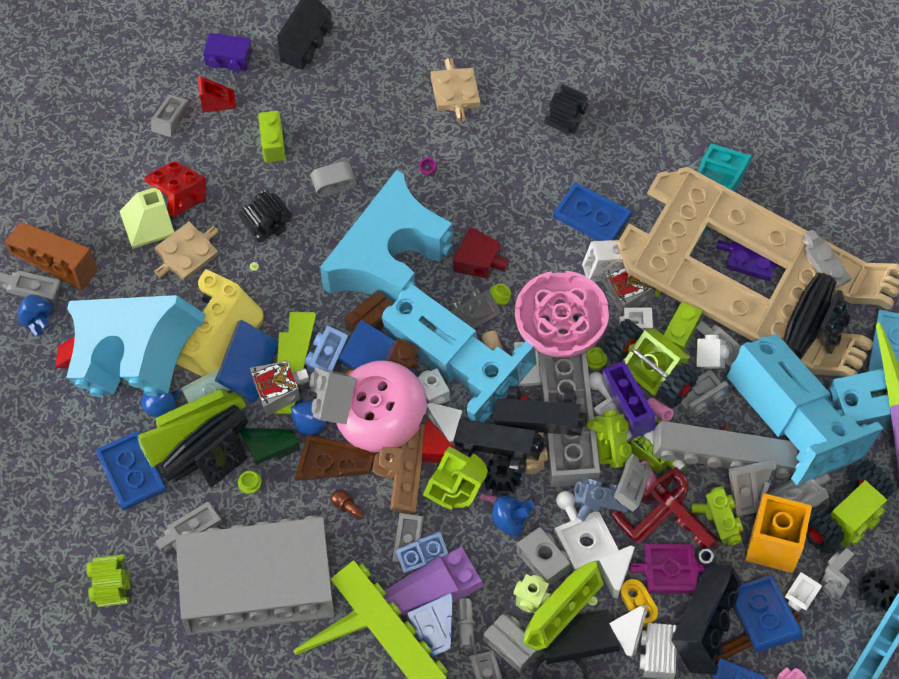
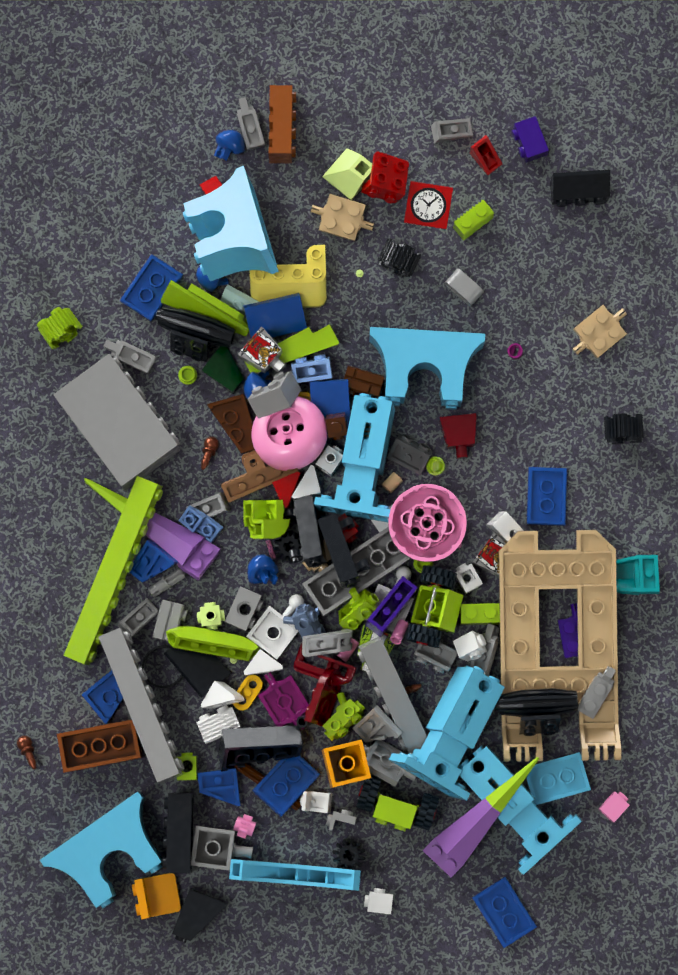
camera: 60 degrees right, 20 degrees up
(229, 172) = (428, 205): none -> sticker

